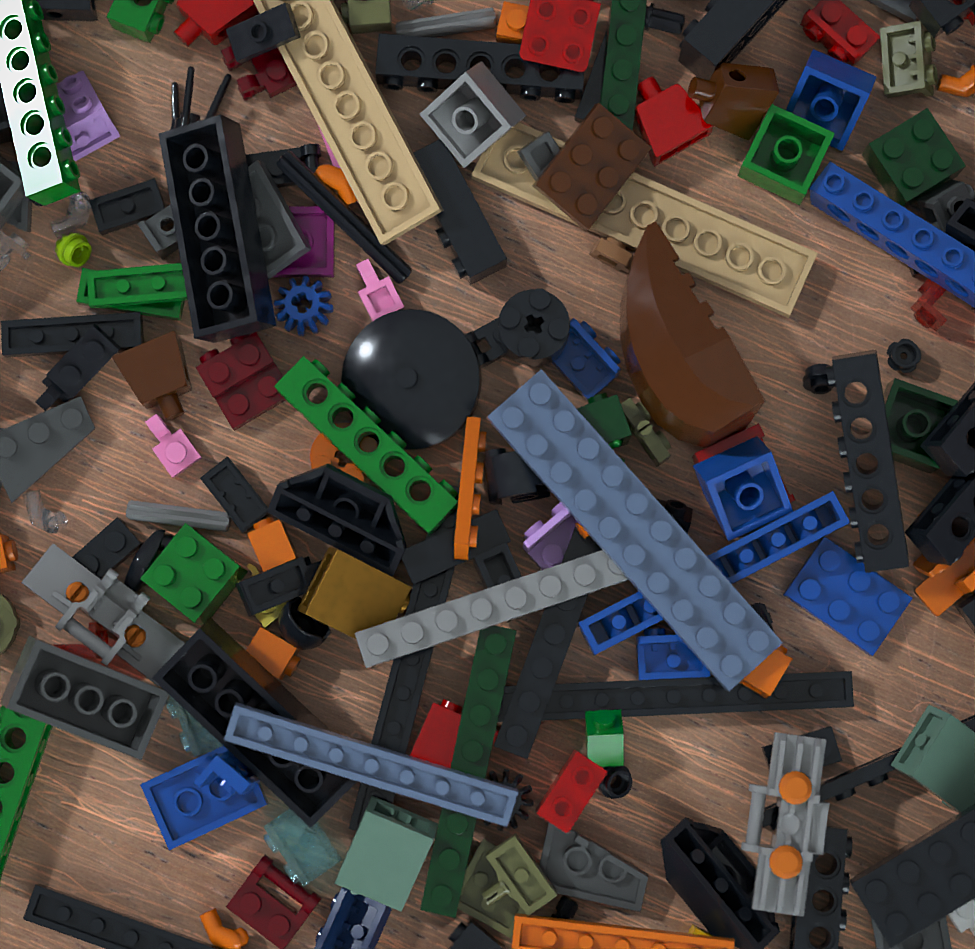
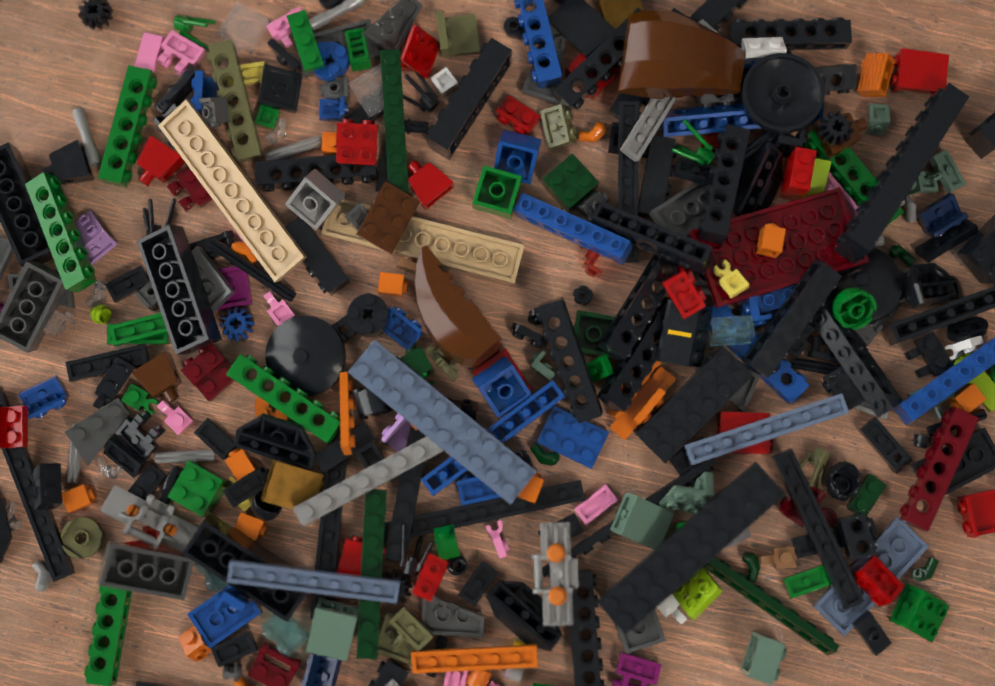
camera: 10 degrees left, 0 degrees up
(75, 499) = (124, 457): none -> black plate
(101, 471) = (137, 438): none -> black plate
(113, 404) = (138, 398): none -> green plate
(144, 838) = (194, 645): none -> orange bracket
(201, 895) = (232, 671): none -> dark grey plate
(211, 858) = (234, 649): none -> black plate
(263, 33) = (188, 172): black plate -> none
(539, 767) = (411, 565): none -> black plant
(580, 283) = (392, 284): none -> orange brick
(646, 817) = (478, 583): none -> black plate
(695, 759) = (500, 544): none -> bright pink plate
(735, 97) = (462, 165): reddish brown torso -> none
(790, 401) = (520, 332): none -> black plate
(793, 623) = (543, 457): none -> dark green arm
(815, 471) = (544, 369): none -> sand green bracket
(869, 718) = (596, 504): none -> bright pink tile
(916, 485) = (600, 368): none -> green plate

